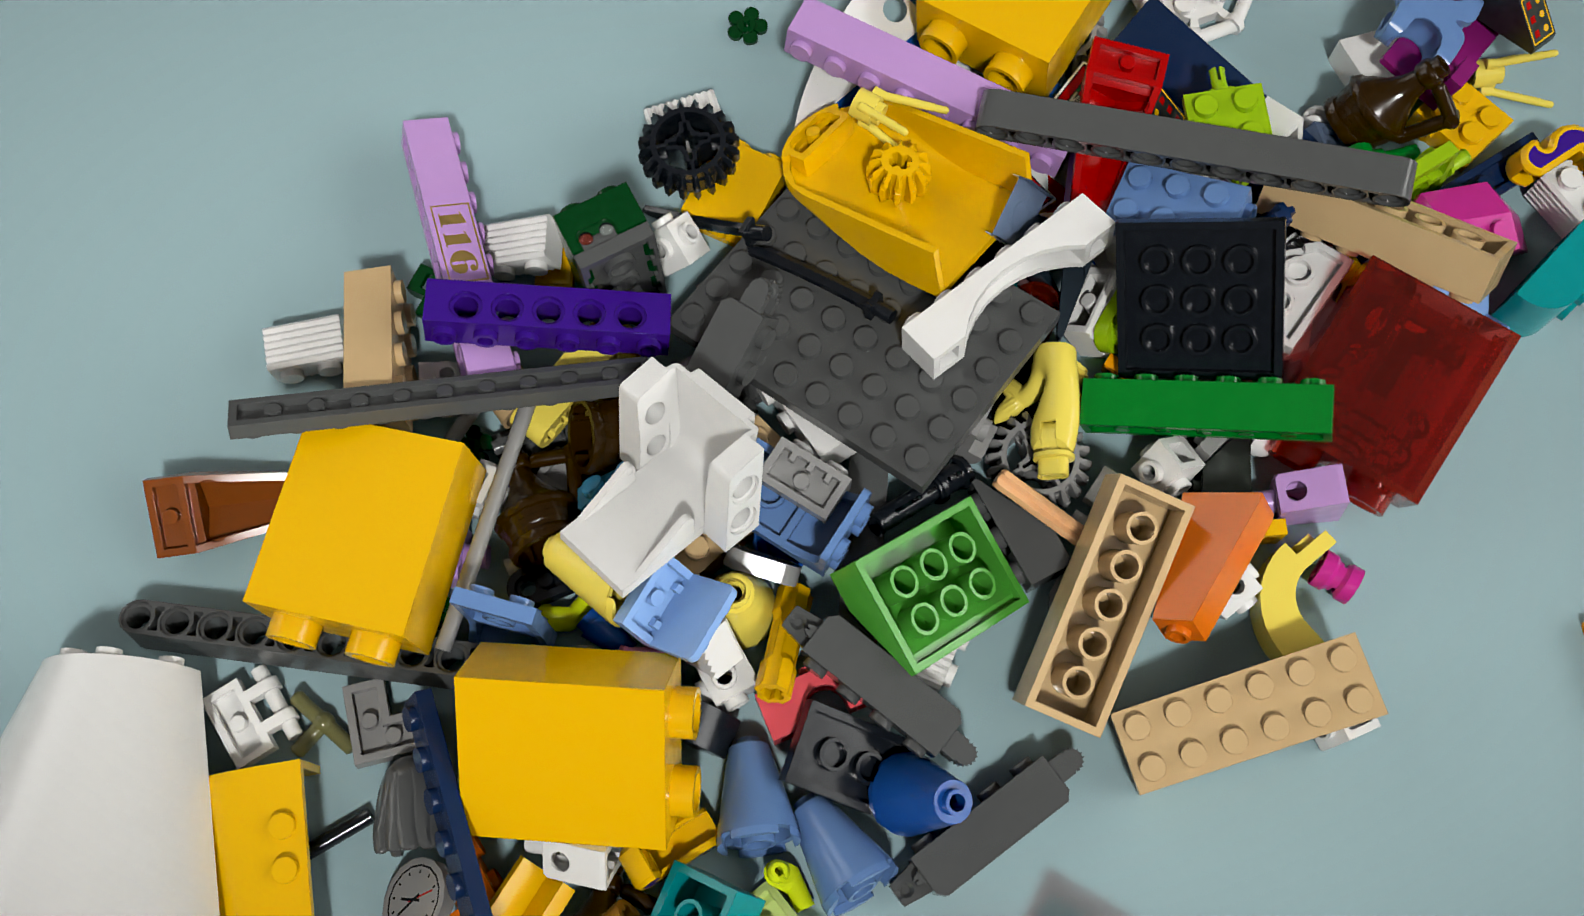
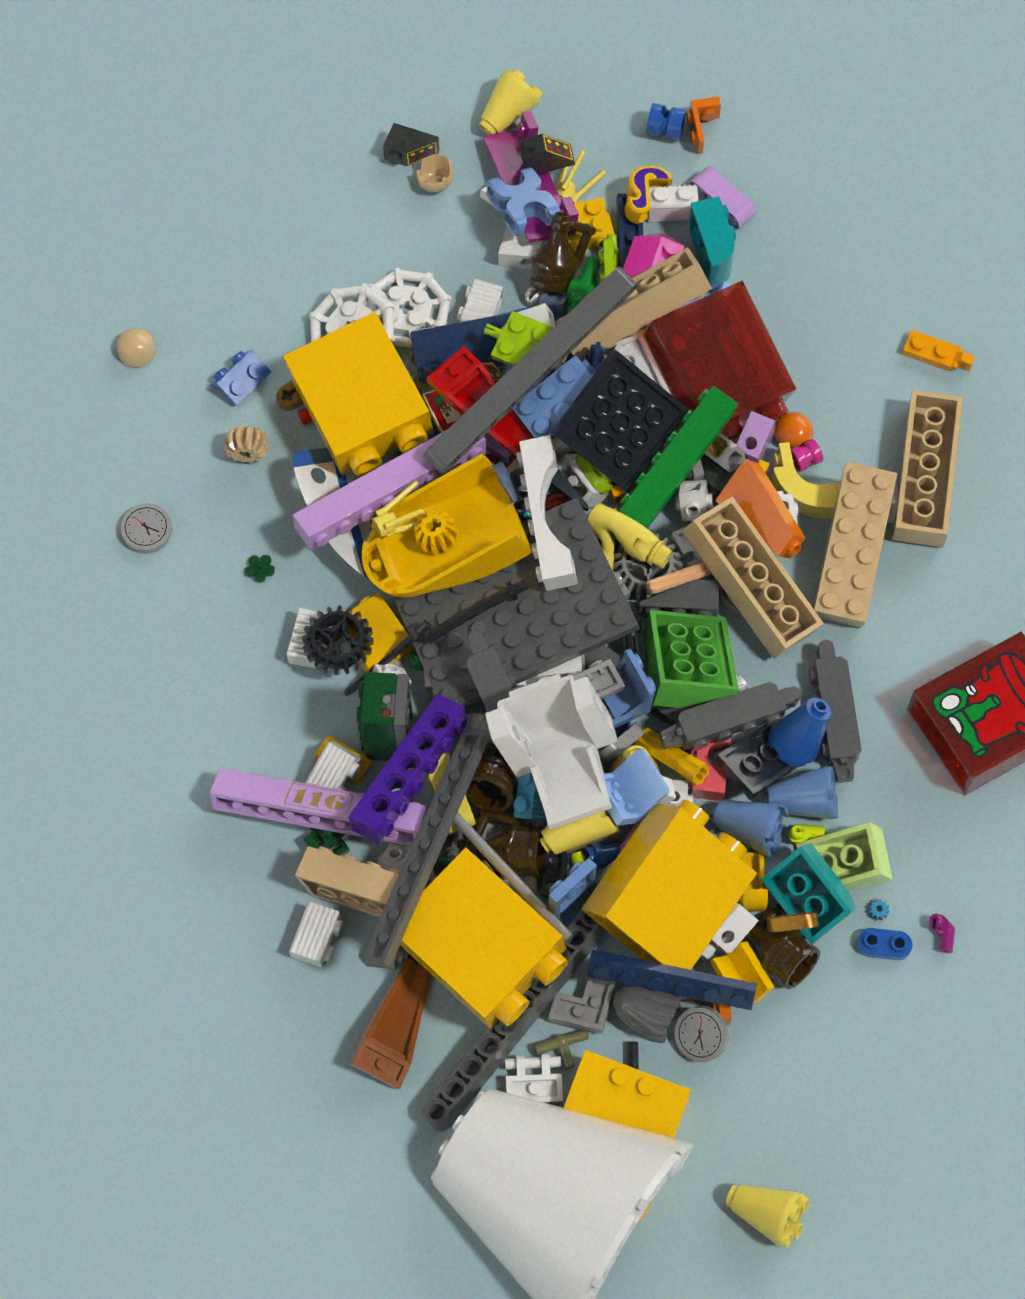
camera: 60 degrees left, 5 degrees down
(1257, 465) = (726, 453): none -> light grey rock
(1264, 61) = (482, 300): none -> white brick
(1362, 540) = (793, 428): none -> orange hair
(1434, 754) = (927, 468): none -> tan brick

